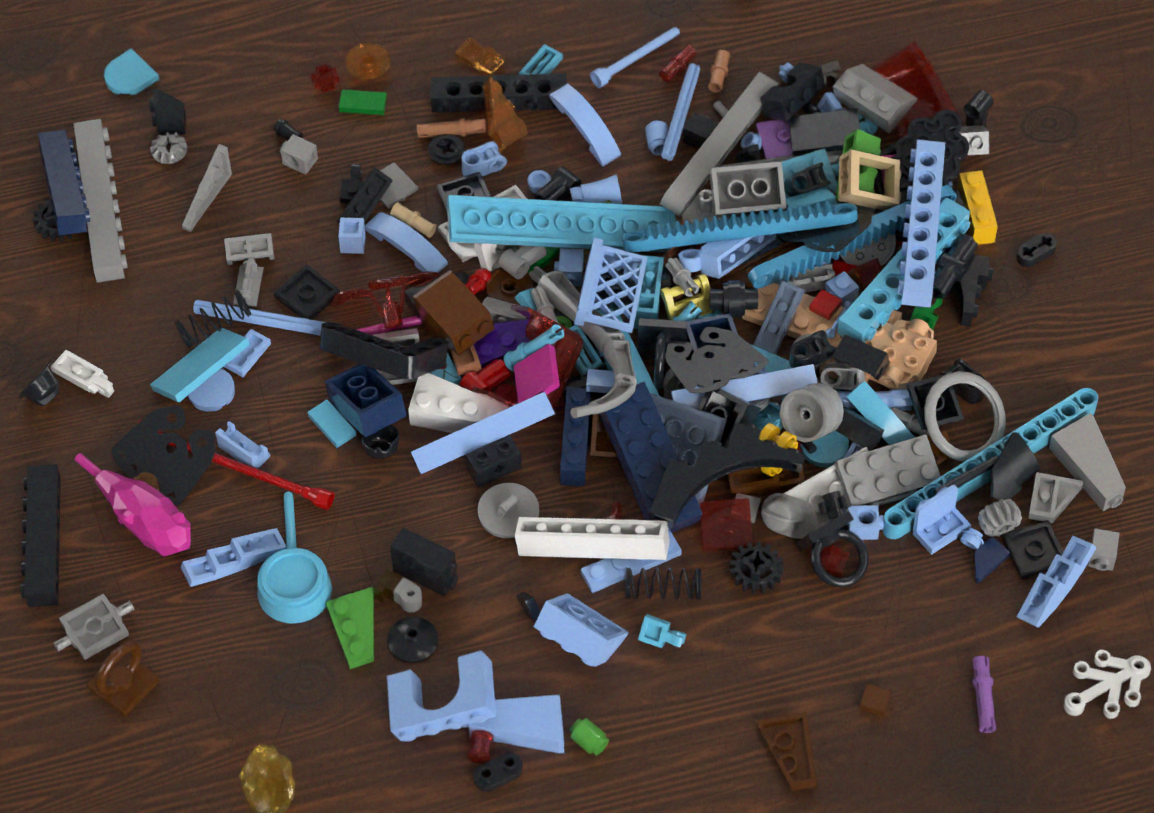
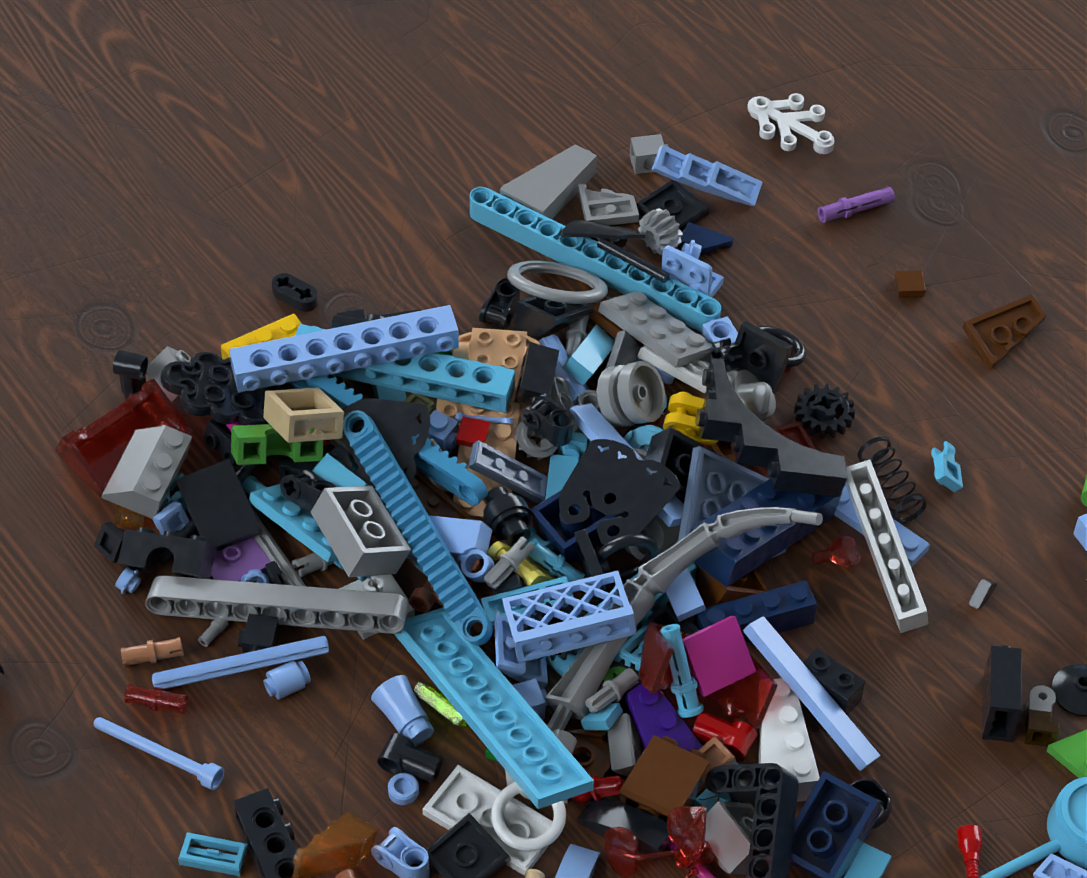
camera: 115 degrees left, 5 degrees down
(503, 506) = (879, 653): light grey shield -> none
(579, 629) = (984, 534): light blue slope -> none
(587, 122) = (297, 756): light blue slope -> none

